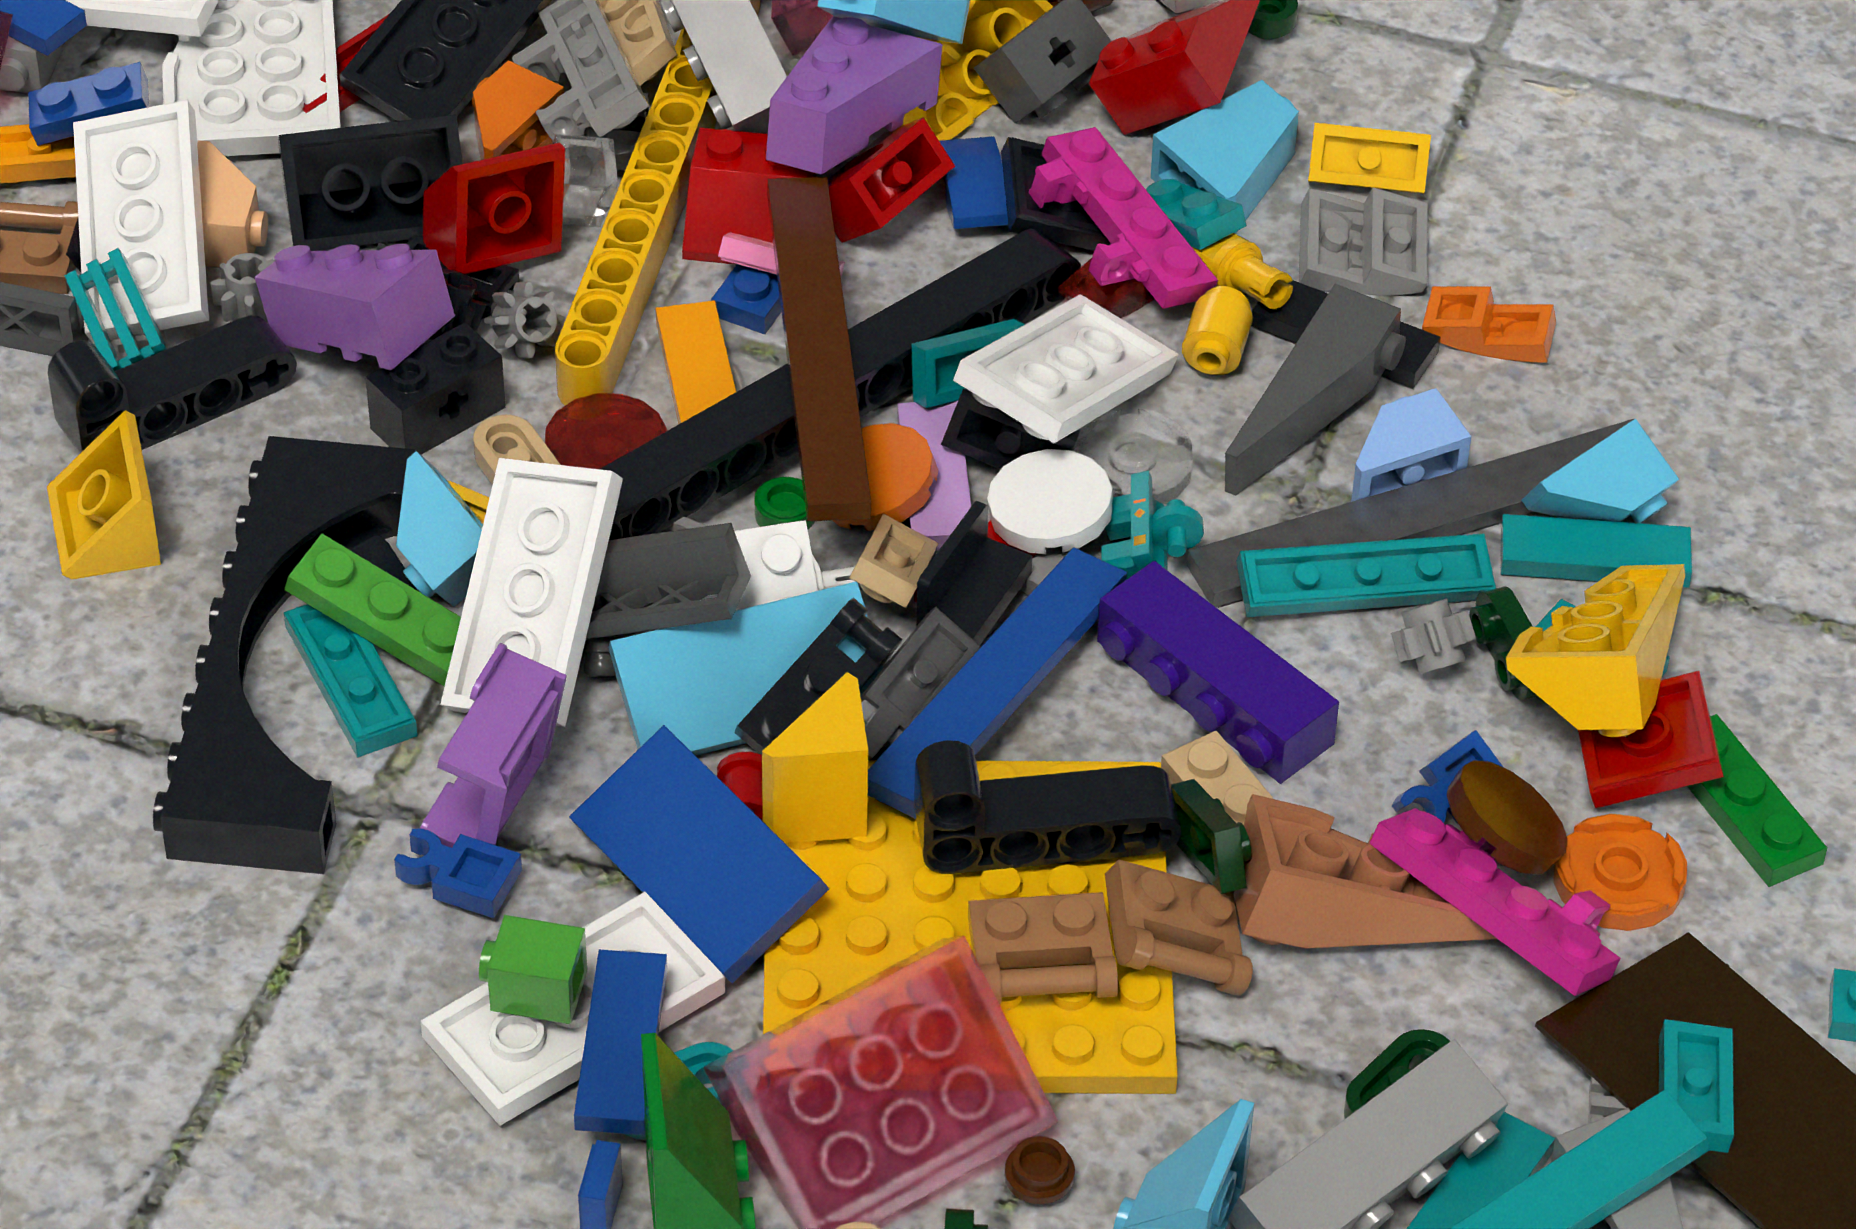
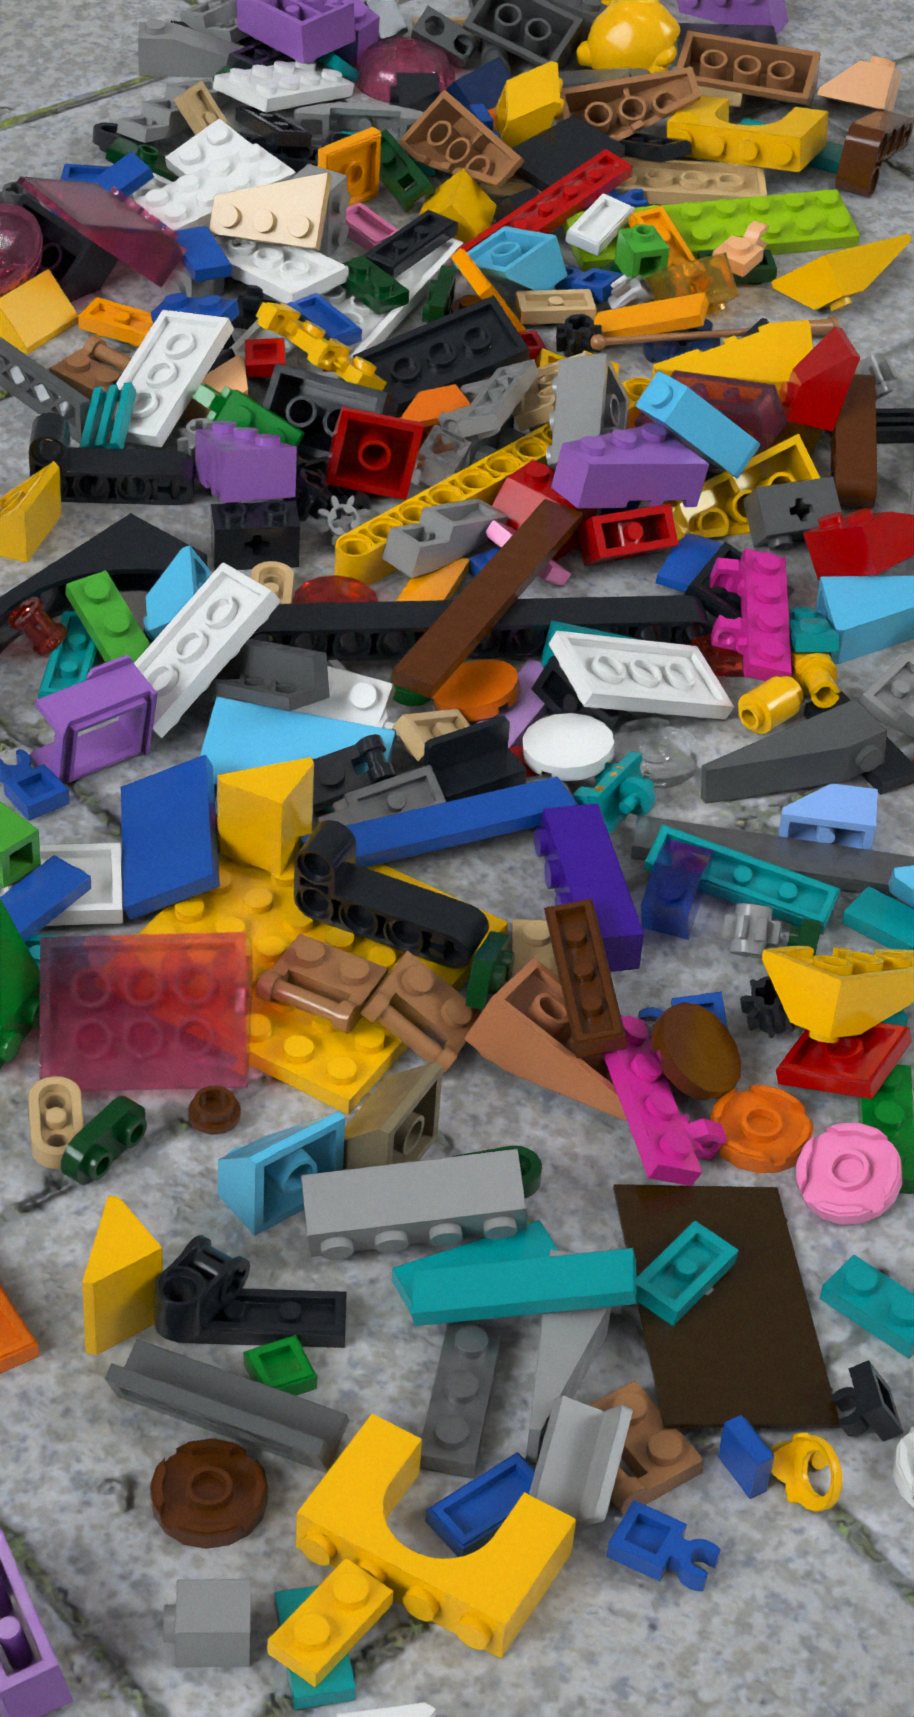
camera: 30 degrees right, 5 degrees down
(130, 49) = (248, 307): none -> black tile
(237, 128) = (263, 355): none -> red plate
(256, 41) = (322, 313): none -> blue tile
(277, 224) = (246, 412): none -> green hinge
(282, 660) = (32, 612): none -> clear red bush
(323, 86) = (326, 354): none -> yellow hinge
(670, 285) = (441, 536): none -> light grey slope
(1267, 1061) = (395, 1120): none -> dark tan slope
(1319, 621) = (676, 888): none -> clear blue slope
(1330, 790) = (585, 978): none -> reddish brown tile
(1519, 730) = (765, 1008): none -> black gear
(1760, 877) = (849, 1173): none -> bright pink tile

